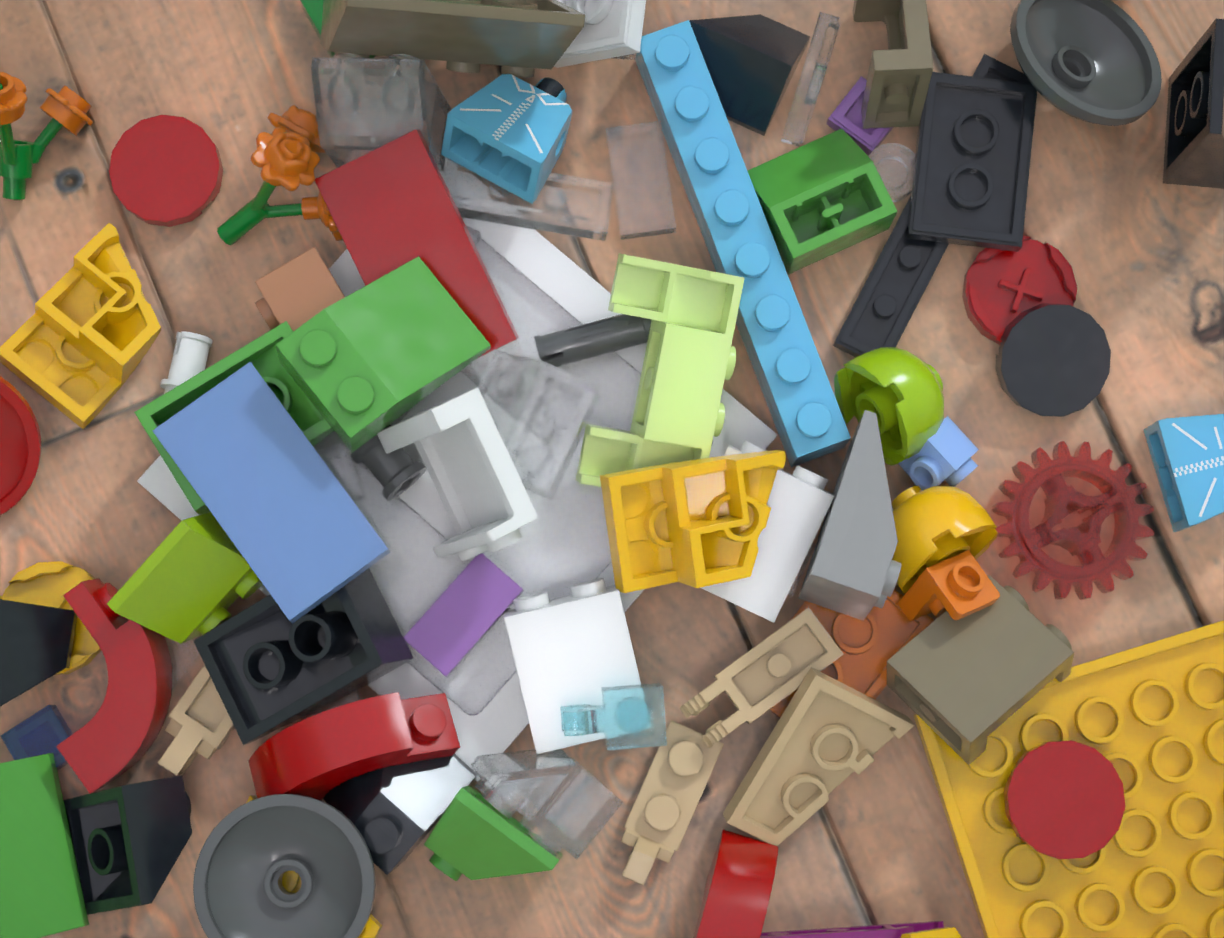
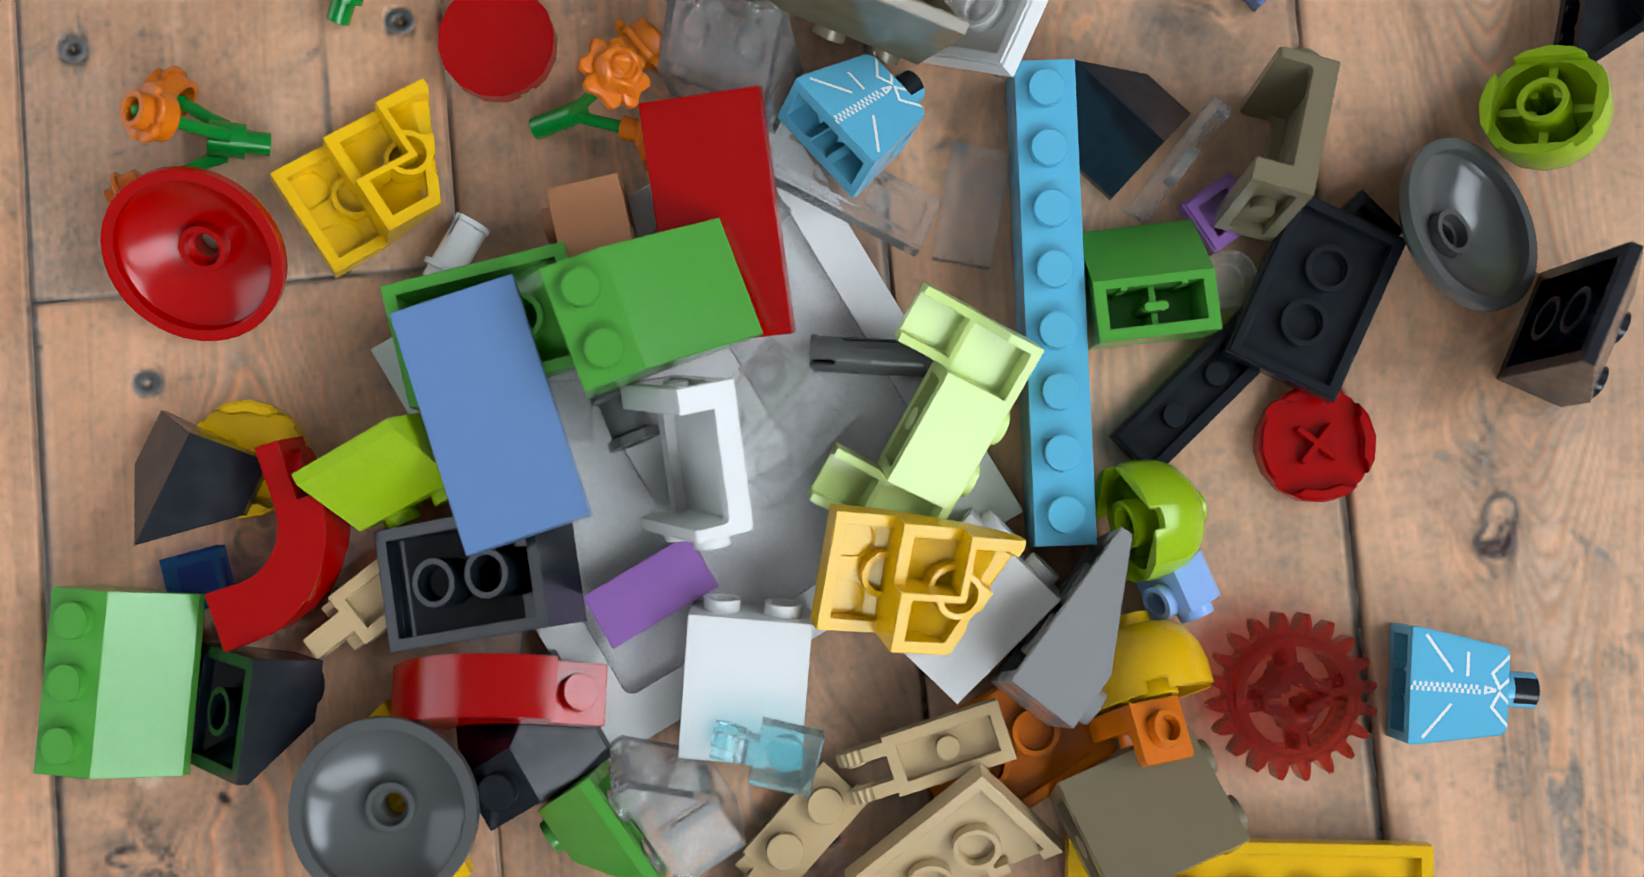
camera: 15 degrees right, 5 degrees up
(1053, 359) = (1326, 526): black tile -> none

